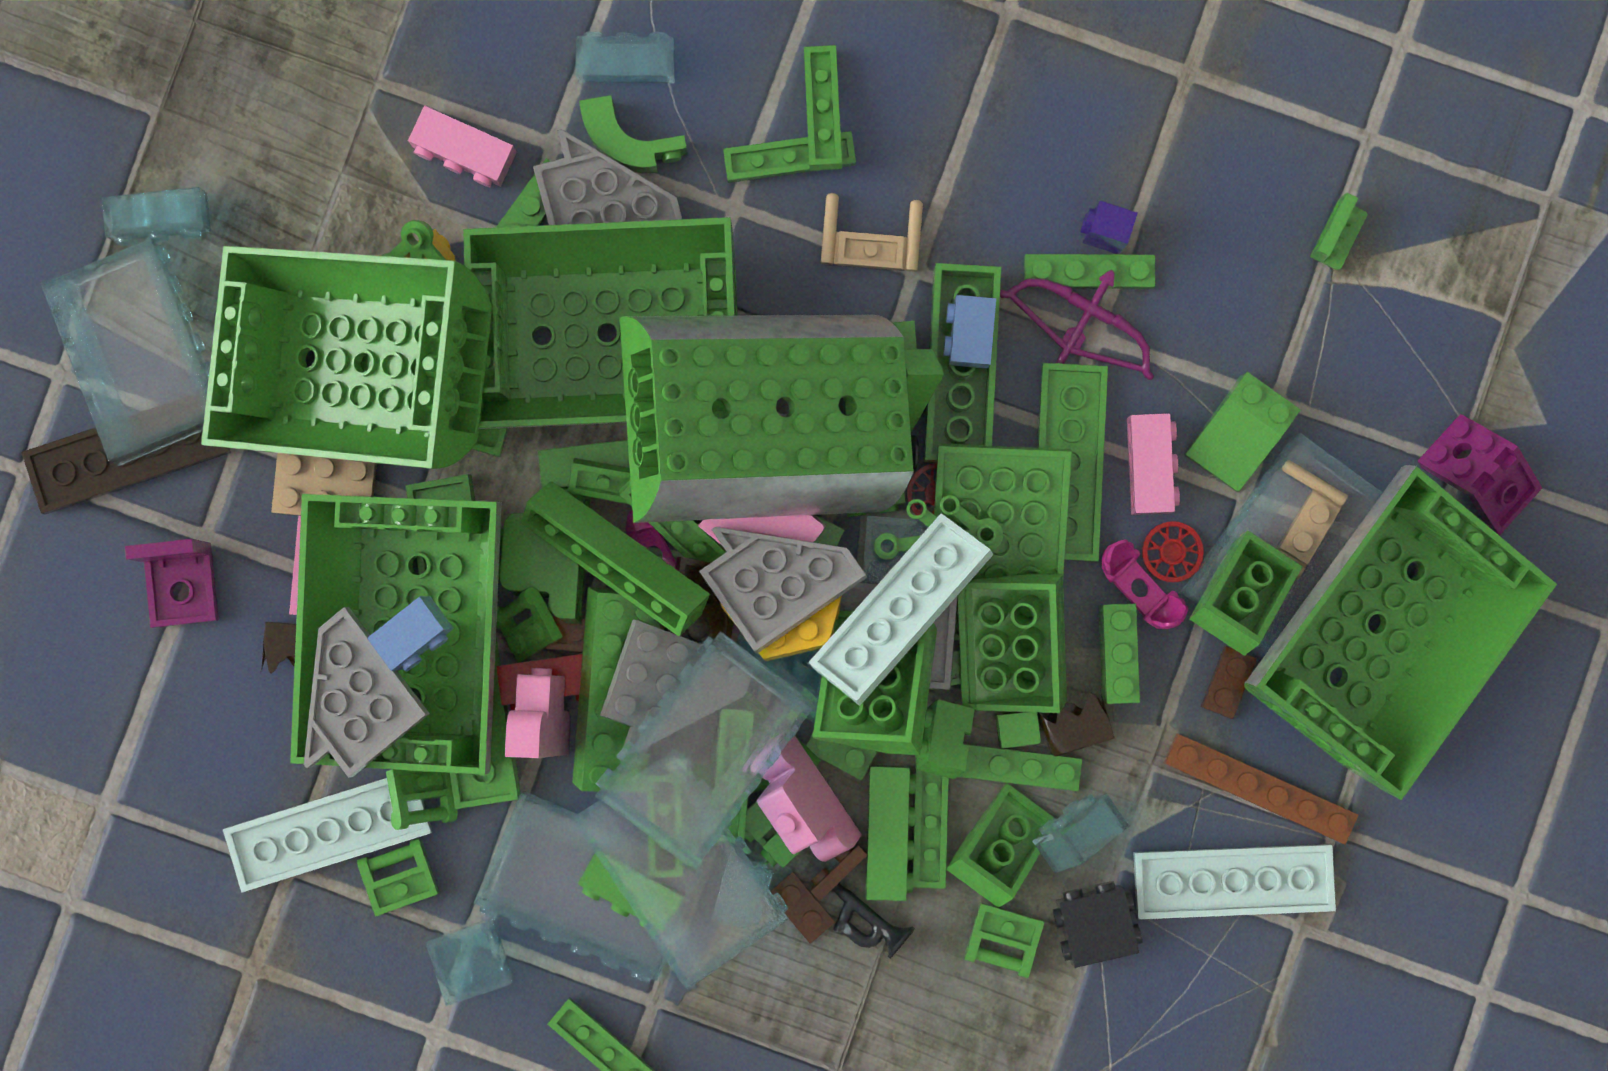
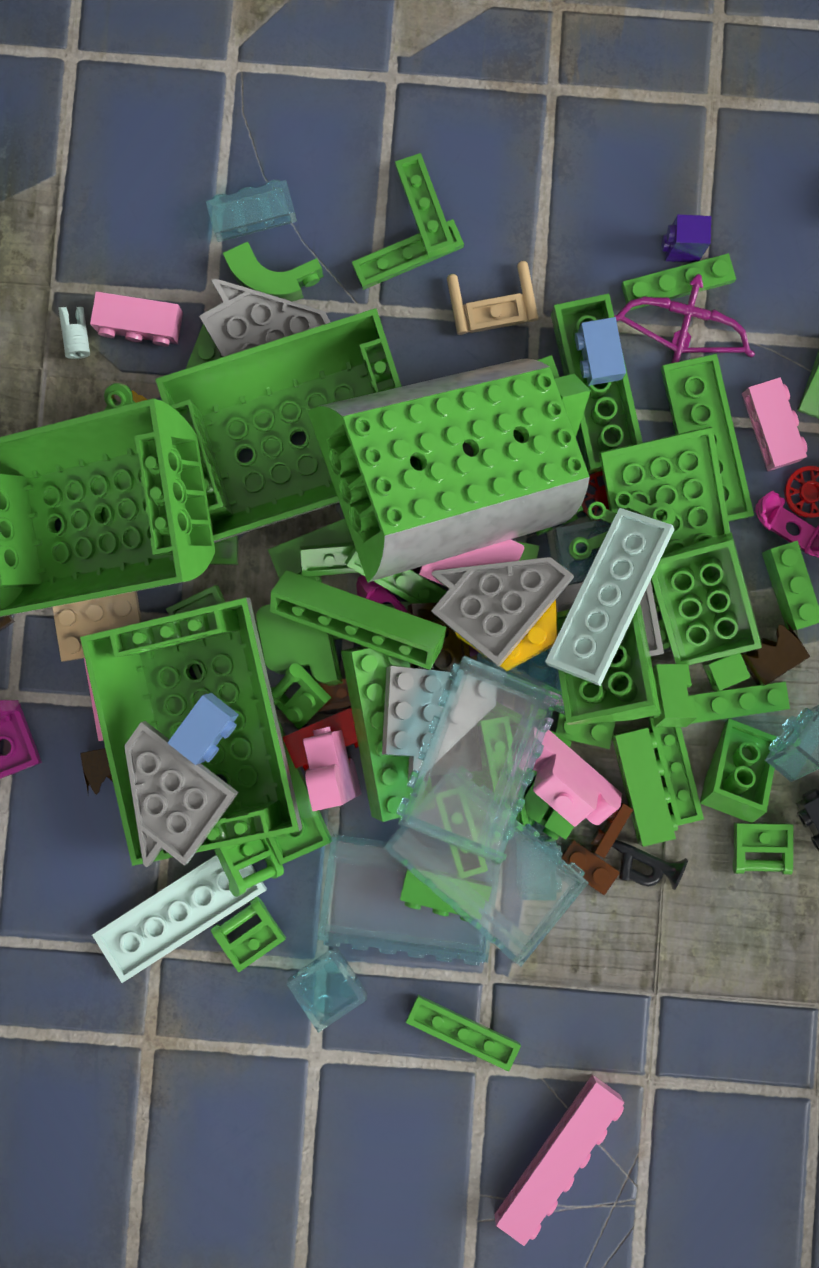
camera: 10 degrees left, 0 degrees up
(387, 148) = (74, 335): none -> light aqua hinge

